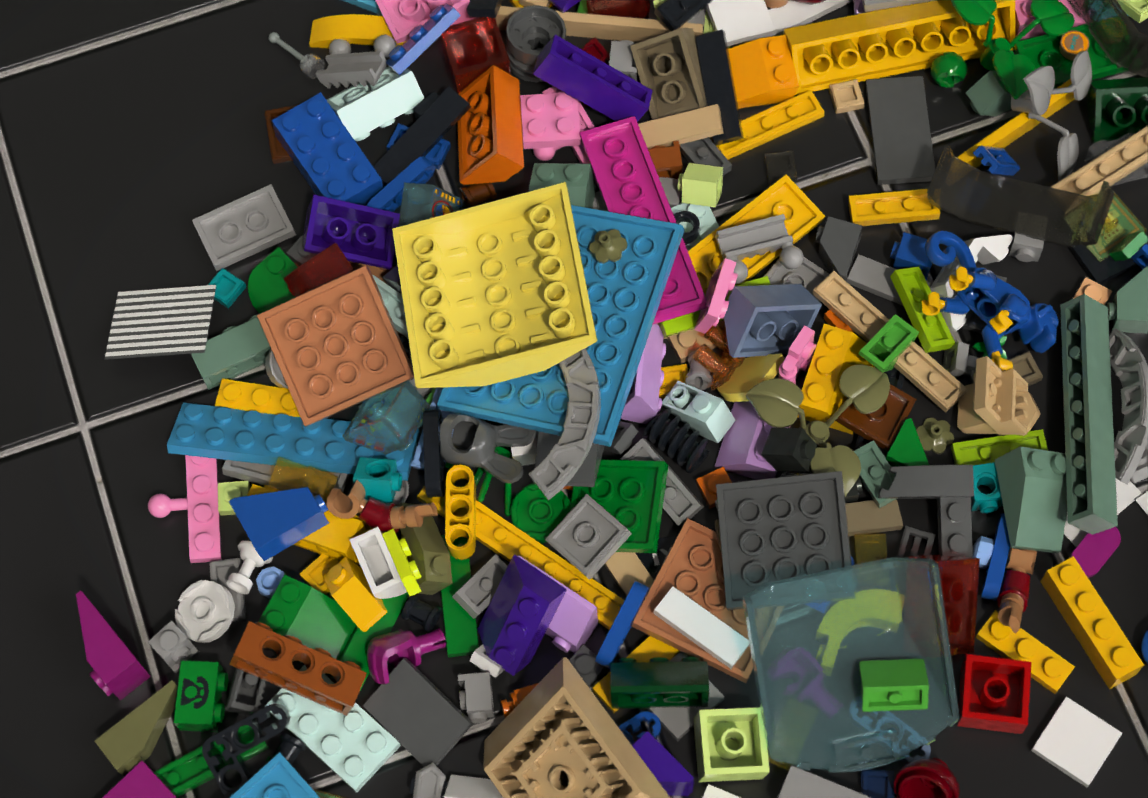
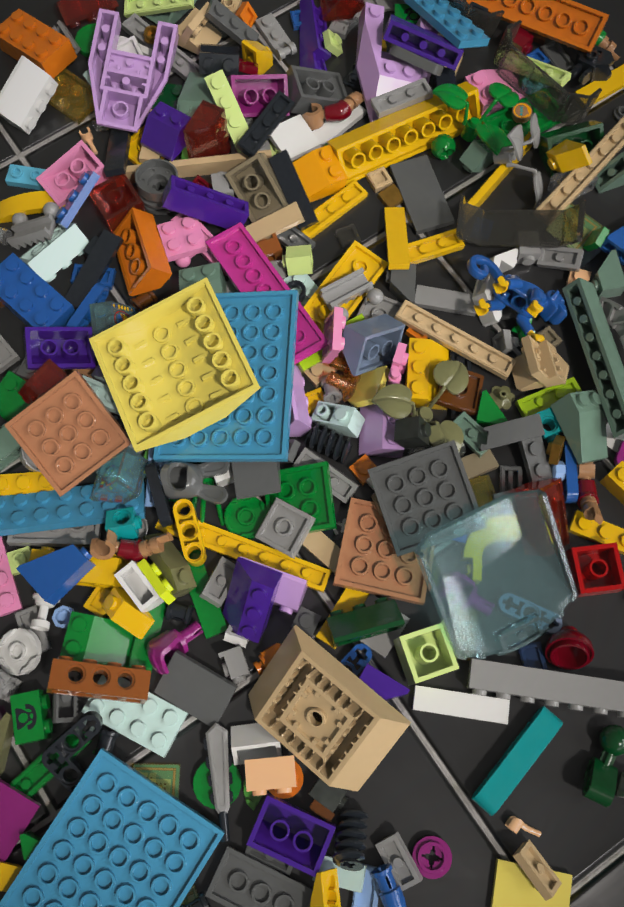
camera: 20 degrees left, 5 degrees up
(291, 475) = (63, 536): clear yellow slope -> none
(579, 426) = (261, 452): light grey tile -> none
(608, 246) = (248, 316): olive plant -> none
(622, 624) = (326, 586): blue beam -> none
(701, 627) = (383, 574): white tile -> none
(845, 184) = (396, 238): none -> yellow tile
(855, 124) = (390, 196): none -> pearl gold tile
(889, 344) = (458, 341): bright green slope -> none
(894, 685) = (529, 583): bright green panel -> none
(911, 253) = (454, 277): blue brick -> none
(912, 290) = (464, 304): lime plate -> none
(986, 521) = (555, 449): none -> pearl gold plate
(998, 159) = (493, 199): blue tile -> none
(1071, 262) = (561, 258): none -> light grey plate
(1118, 122) = (568, 156): none -> yellow slope

